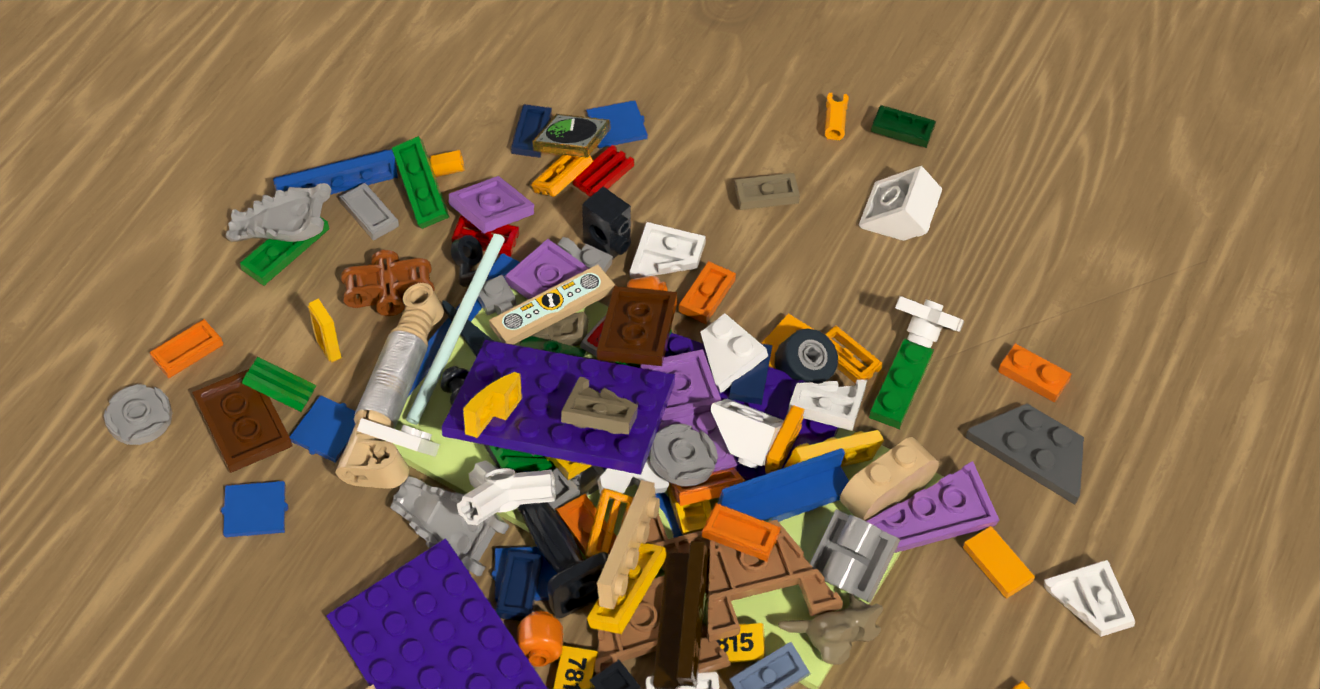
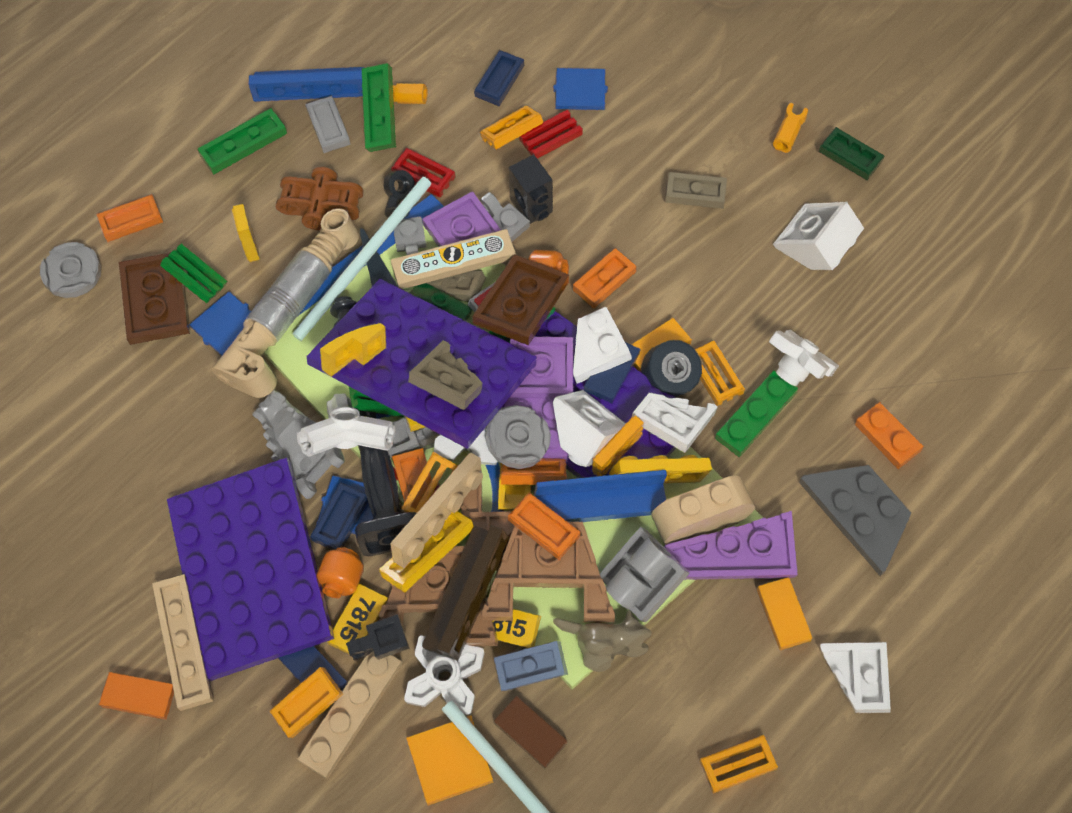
camera: 20 degrees right, 10 degrees up
(254, 509) = (140, 383): blue piece -> none
(286, 217) = (244, 114): light grey animal -> none
(407, 437) = (278, 357): white wing -> none
(491, 204) = (435, 144): medium lavender plate -> none
(571, 135) = (531, 92): tile -> none
(666, 251) = (580, 228): white wing -> none

